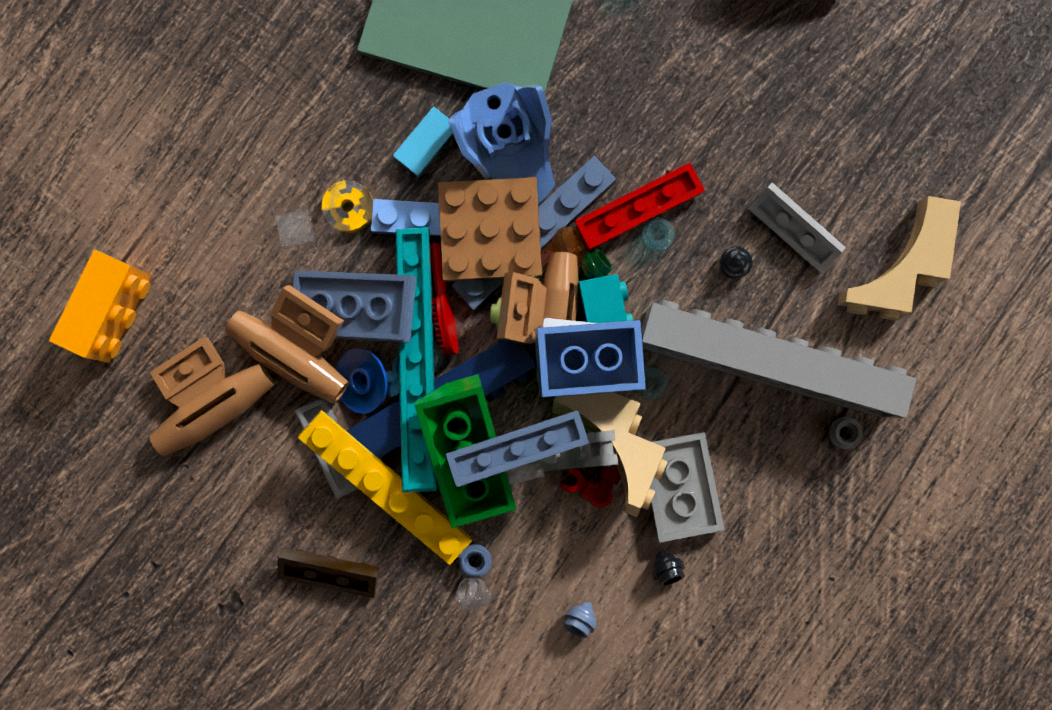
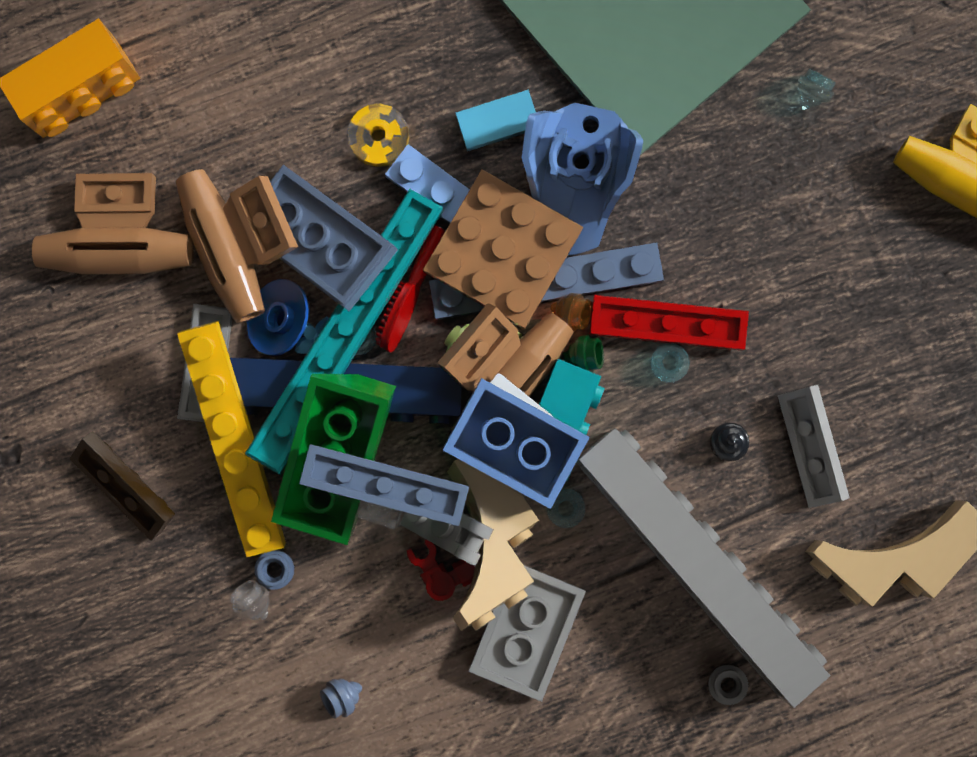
camera: 30 degrees right, 0 degrees up
(295, 229) = (311, 124): clear plate -> none
(667, 569) = (460, 703): black plate -> none

